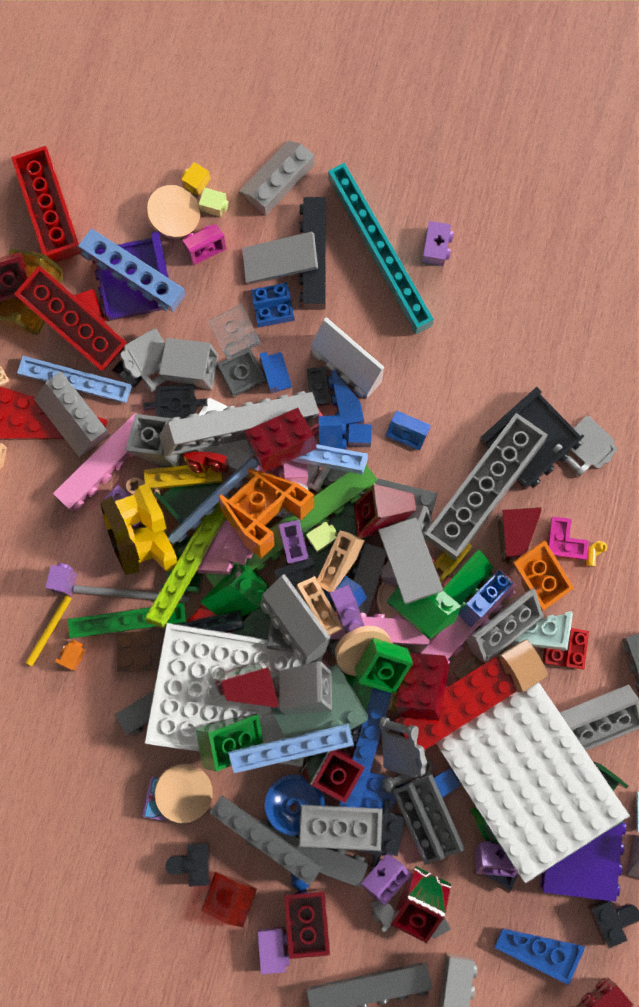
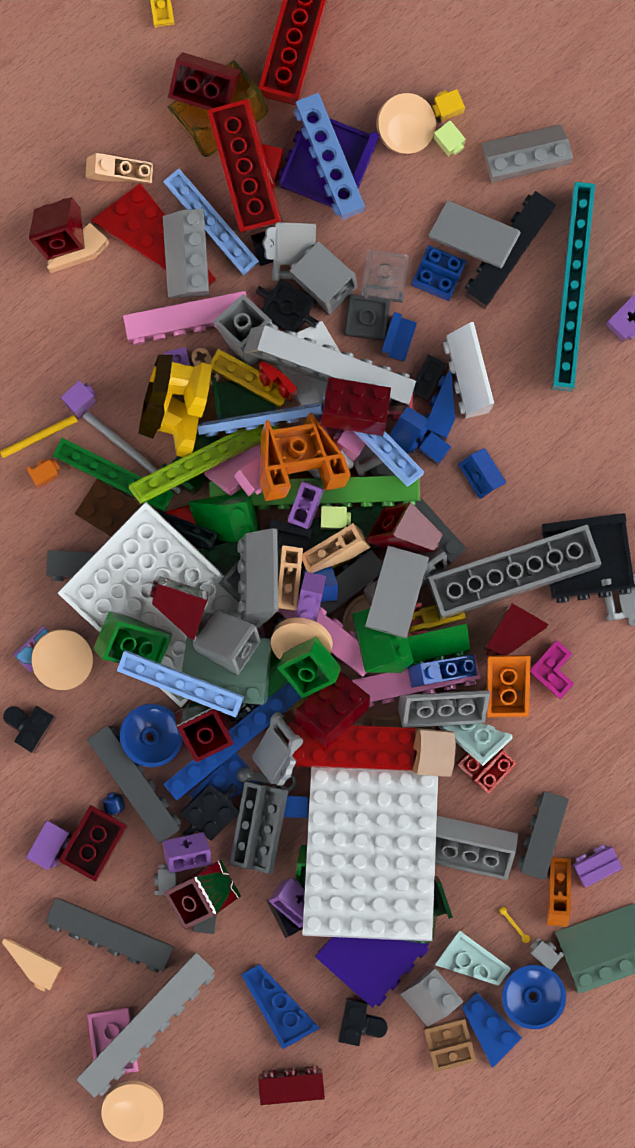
camera: 30 degrees right, 5 degrees up
(204, 243) = (414, 173): dark pink slope -> none
(229, 899) = (40, 777): clear red slope -> none
(265, 840) = (106, 747): dark grey brick -> none
(340, 827) = (177, 781): light grey tile -> none
(593, 551) = (572, 696): yellow arm -> none

